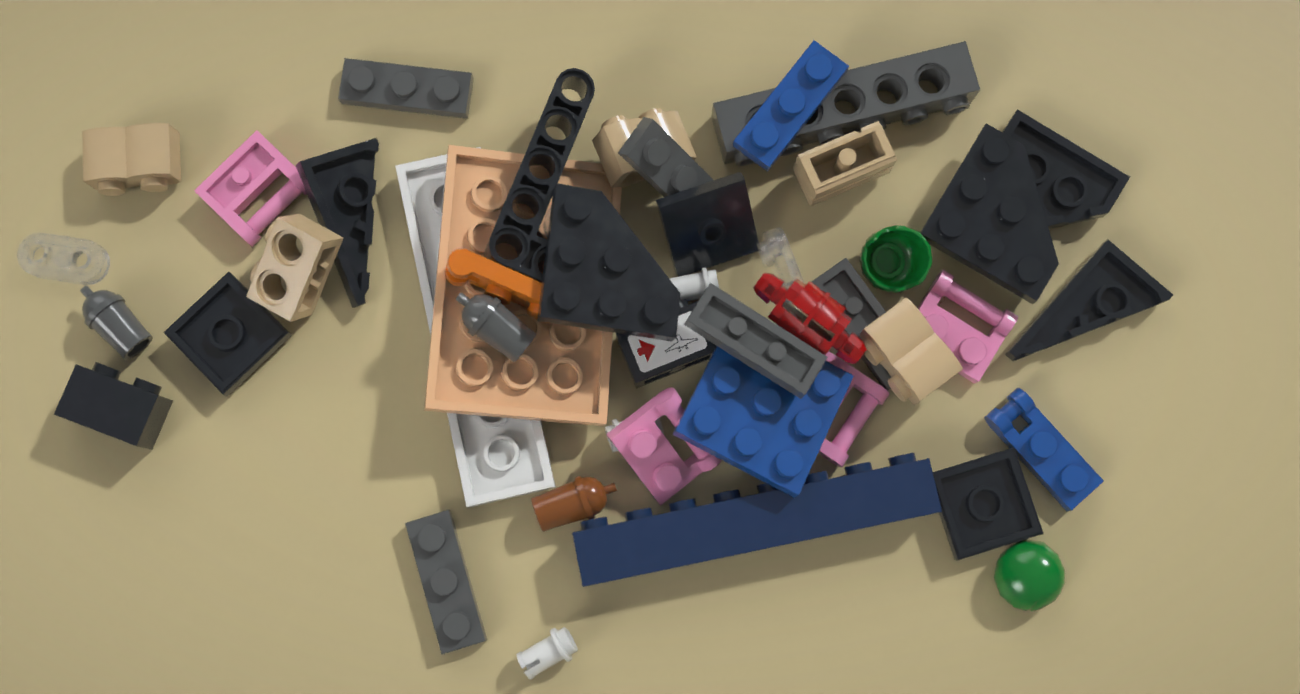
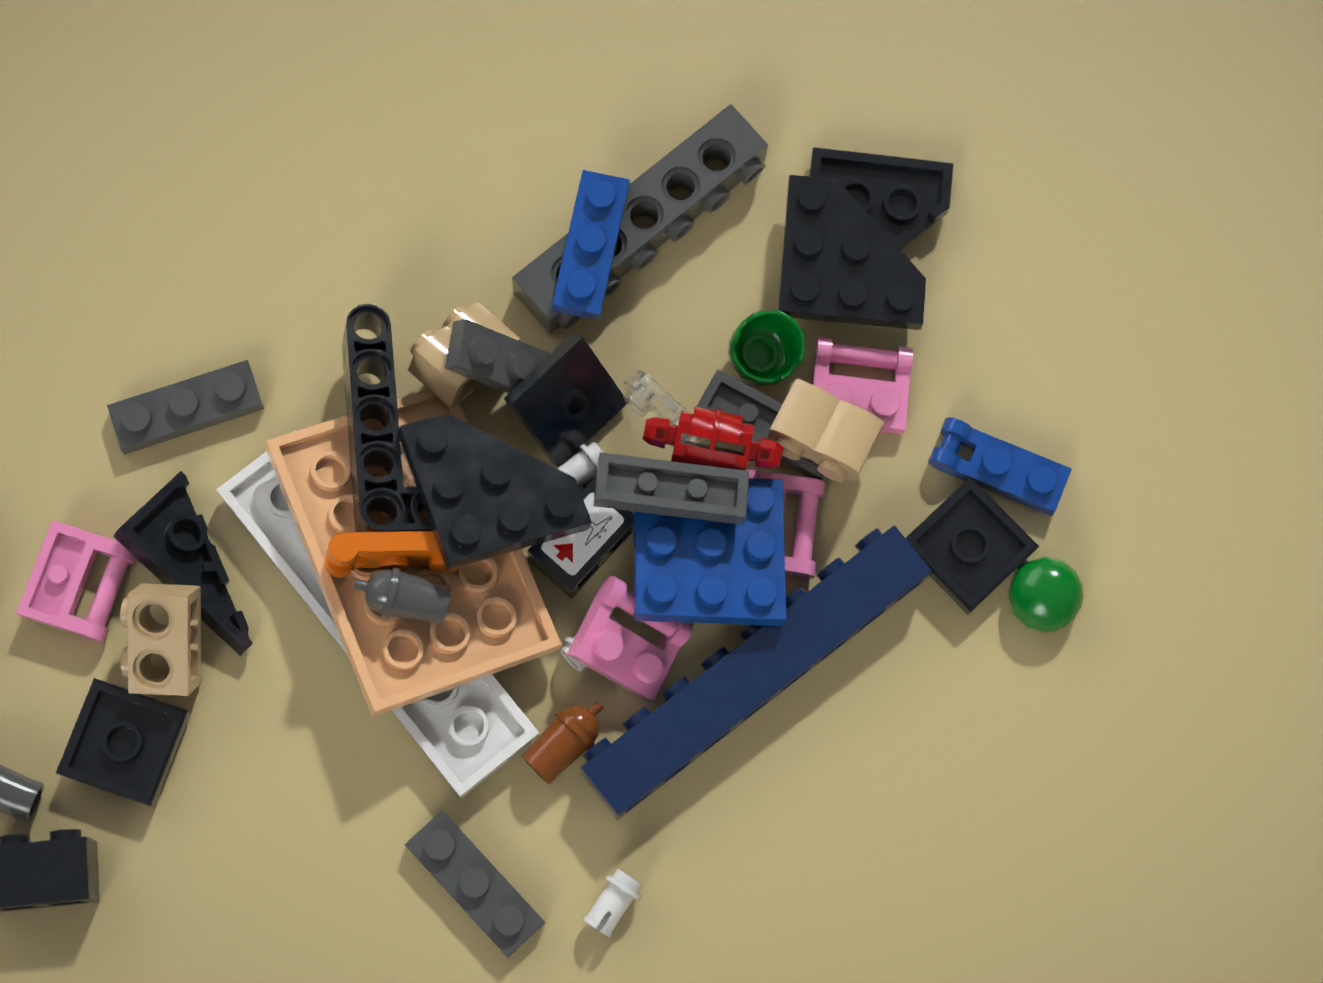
camera: 35 degrees left, 5 degrees down
(844, 163) = (670, 277): tan brick -> none
(1098, 294) = (978, 292): black wing -> none

